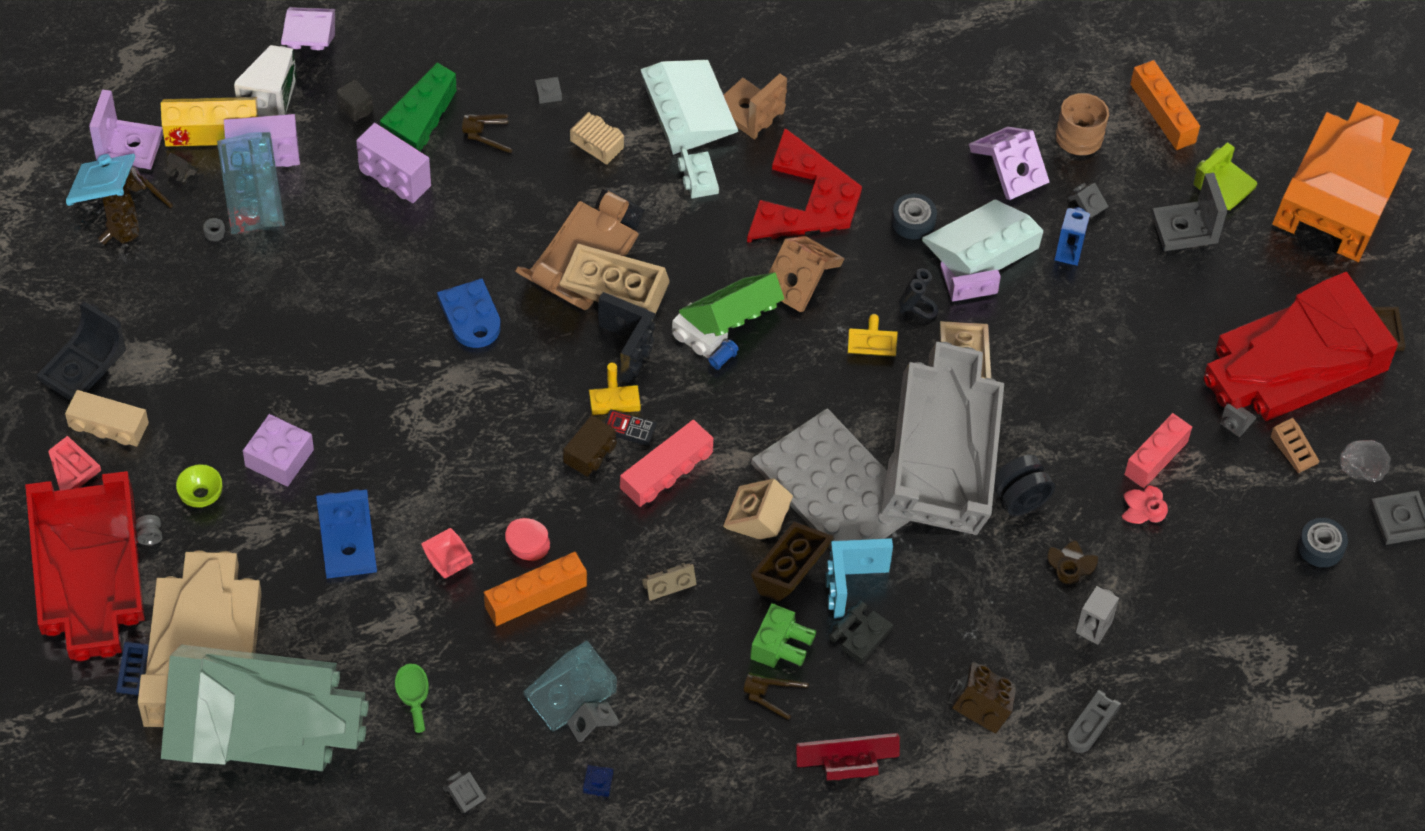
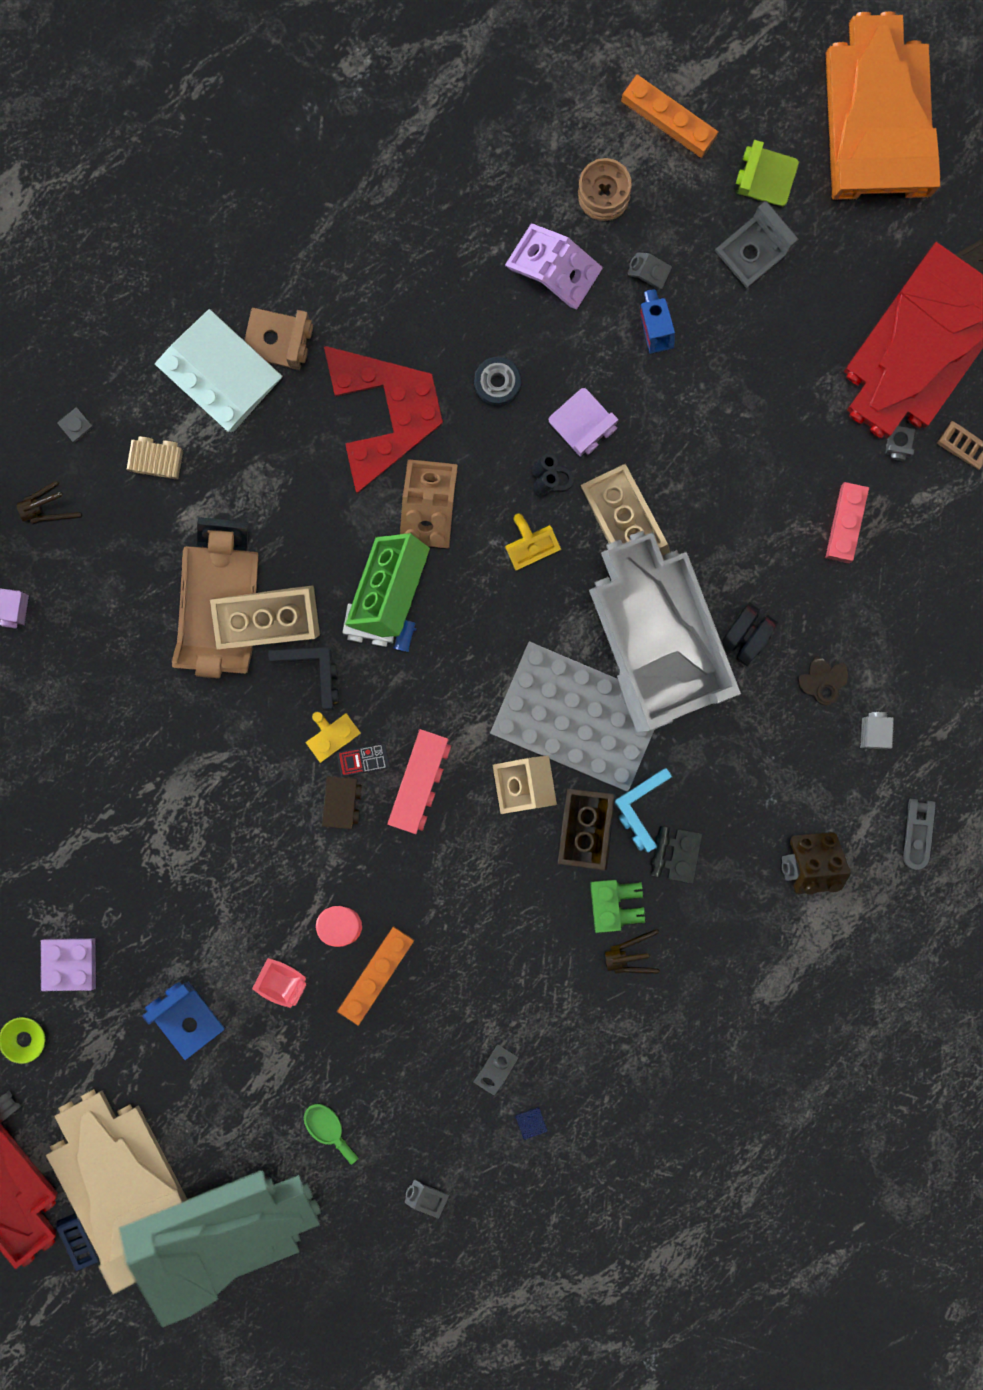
camera: 30 degrees left, 30 degrees up
(470, 311) = (149, 716): blue plate -> none
(569, 683) = (459, 1052): clear light blue slope -> none
(670, 582) = (493, 890): dark tan hinge -> none
(698, 174) = (271, 444): light aqua bracket -> none
(848, 756) = (733, 987): dark red bracket -> none
(985, 239) = (575, 374): light aqua slope -> none
(1145, 505) = (856, 584): coral plate -> none

